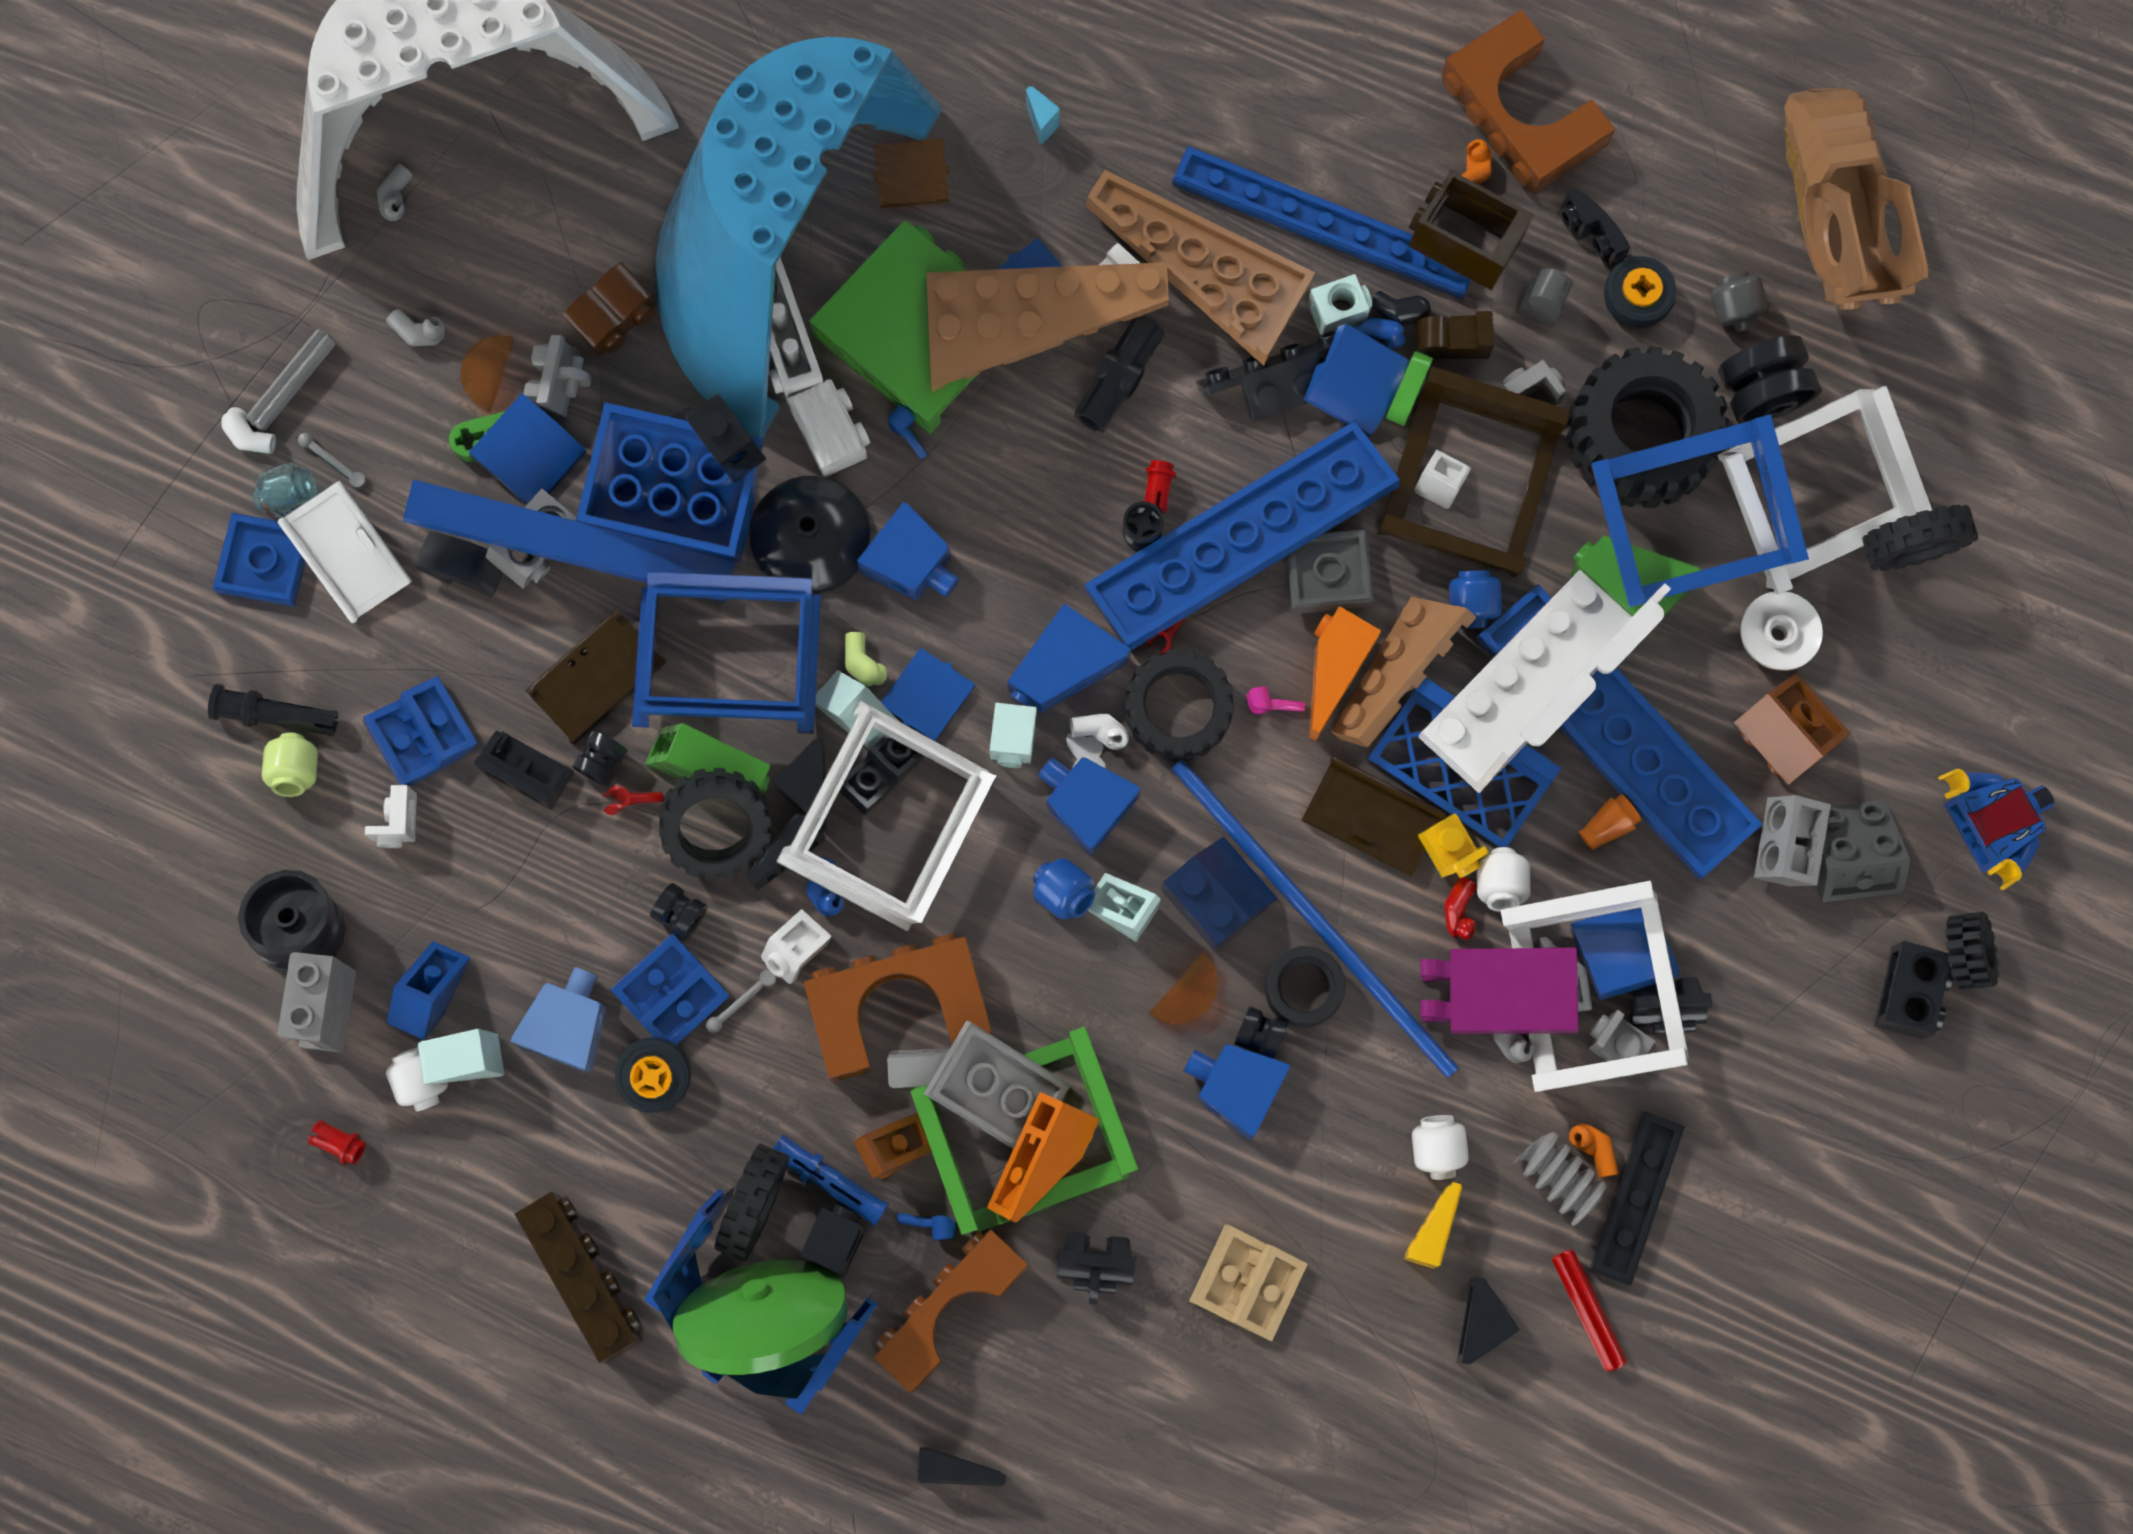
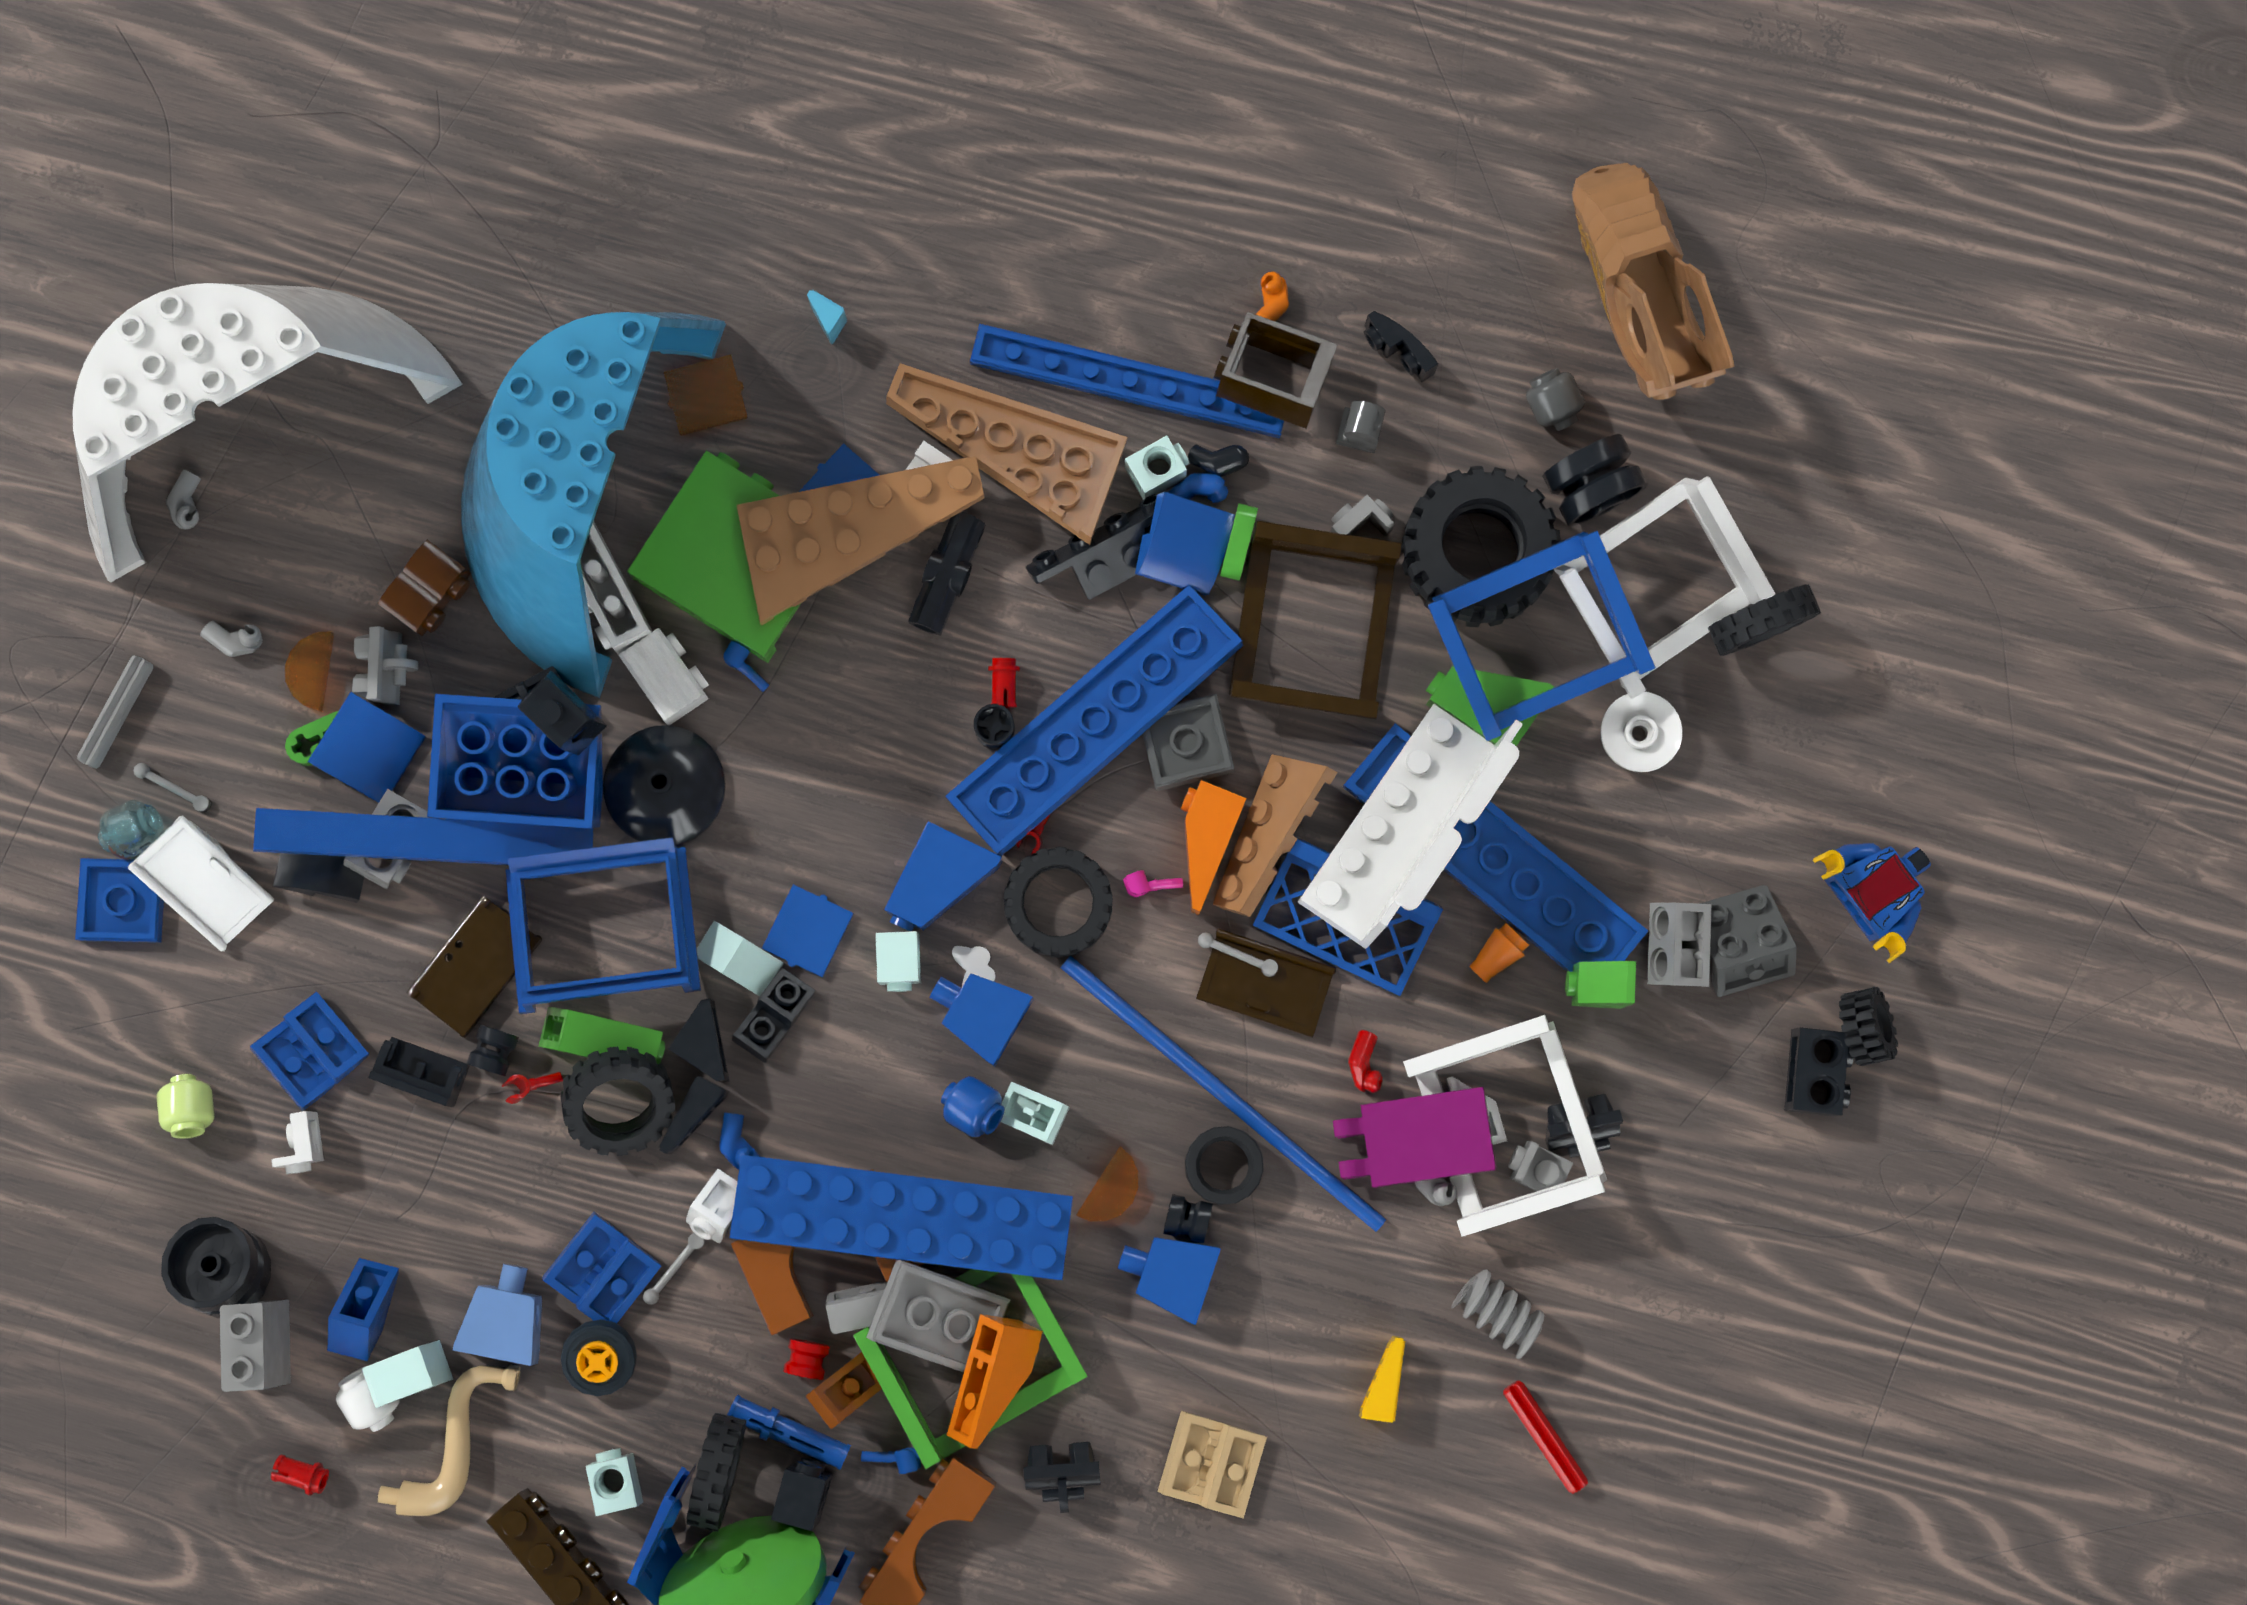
camera: 10 degrees left, 5 degrees up
(241, 435) = (76, 777): white arm -> none
(253, 708) = (139, 1055): black pin -> none
(468, 1186) = (435, 1497): none -> tan animal
(658, 1216) = (610, 1501): none -> light aqua brick
(678, 911) = (596, 1190): black wheel -> none
(849, 886) = (851, 1080): white piece -> none
(859, 664) = (734, 911): yellowish green arm -> none
(859, 1109) = (806, 1359): none -> red wheel
(909, 556) = (766, 795): blue torso -> none
(977, 981) = (901, 1217): none -> blue plate
(1102, 727) = (986, 937): white arm -> none
(1218, 893) = (1126, 1084): dark blue slope -> none
(1377, 801) = (1267, 967): none -> light grey hinge
(1440, 1146) = (1378, 1302): white head -> none
(1442, 479) = (1285, 628): white slope -> none
(1452, 847) = (1348, 1003): yellow bracket -> none
(1456, 336) = (1277, 480): dark brown leg -> none
(1479, 594) = (1335, 745): blue head -> none
(1484, 1323) = (1446, 1469): black slope -> none
(1503, 879) = (1402, 1027): white head -> none
(1534, 152) = (1330, 276): dark orange arch -> none
(1596, 1144) = (1529, 1273): orange arm -> none
(1617, 952) = (1523, 1083): blue tile -> none
(1635, 306) = (1456, 419): black wheel -> none
(1636, 1198) = (1576, 1320): black tile -> none
(1711, 864) = (1602, 984): none -> bright green slope
(1791, 728) = (1665, 829): slope -> none

